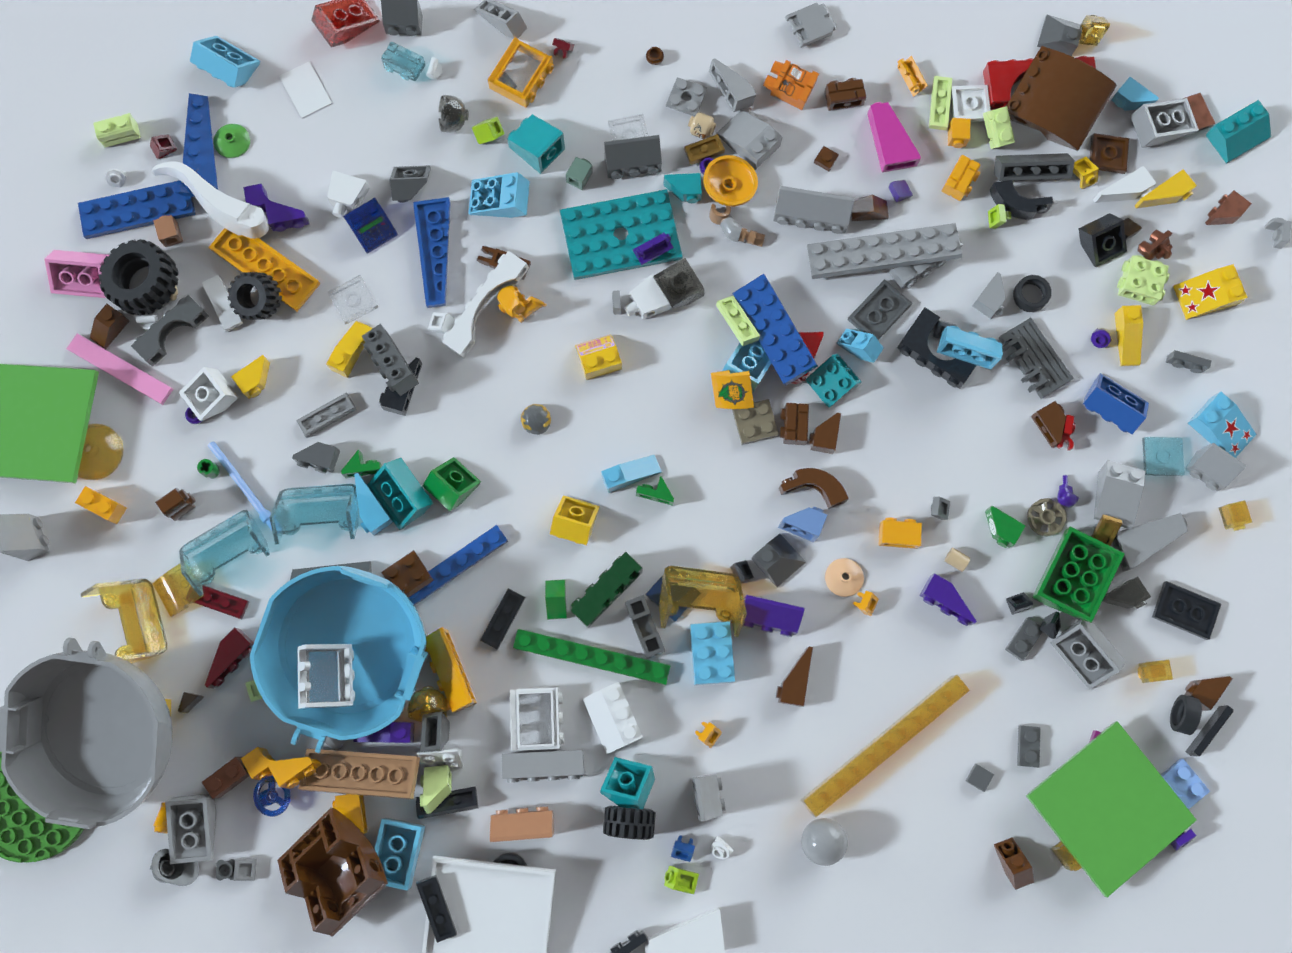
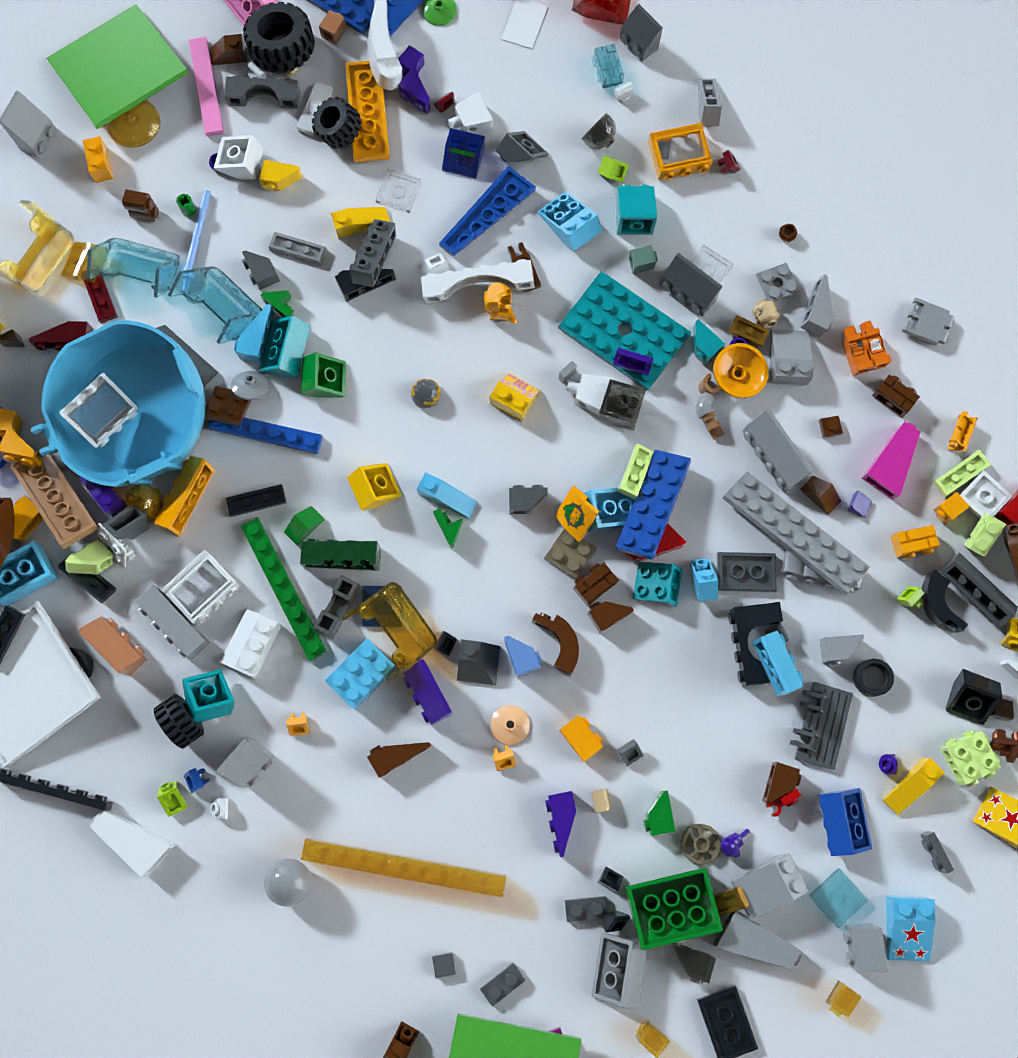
camera: 50 degrees right, 0 degrees up
(313, 202) = (445, 102): none -> dark red slope
(410, 549) = (250, 385): none -> light grey dish
(686, 418) = (524, 500): none -> dark grey slope

